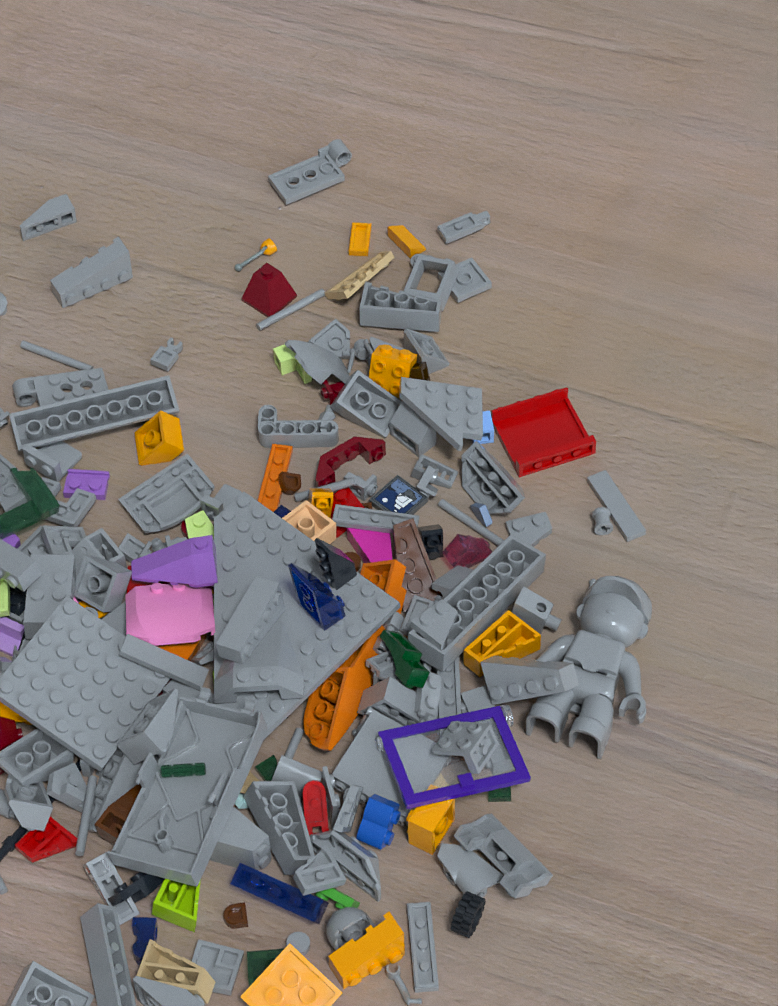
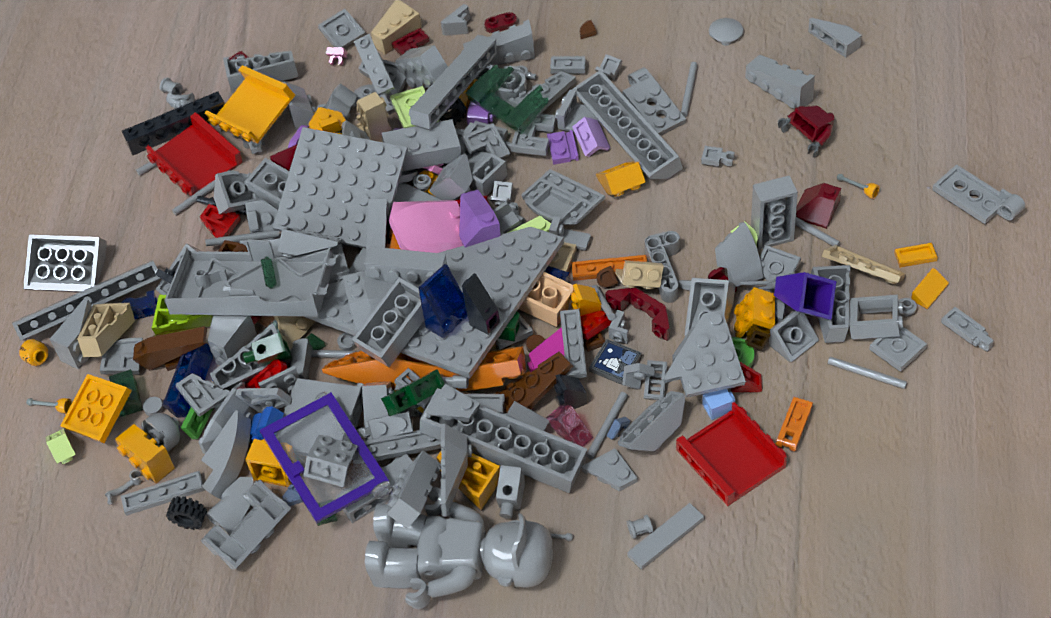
camera: 80 degrees right, 0 degrees up
(89, 454) = (590, 136): none -> lavender panel
(165, 264) = (811, 122): none -> dark red torso
(225, 908) = (168, 346): none -> reddish brown wedge
(279, 736) = (345, 342): none -> light grey tile
(285, 308) = (774, 211): none -> light grey brick
(294, 786) = (275, 349): none -> dark green torso
(311, 448) = (640, 274): none -> tan bracket
(317, 648) = (391, 323): none -> light grey brick
(399, 316) = (807, 293): none -> dark purple slope
(406, 864) = (227, 454): none -> light grey slope
(466, 815) = (291, 496): none -> sand blue tile
(483, 311) = (867, 372): none -> light grey bar
(498, 639) = (453, 464): none -> light grey wedge
(524, 377) = (794, 423): none -> orange plate

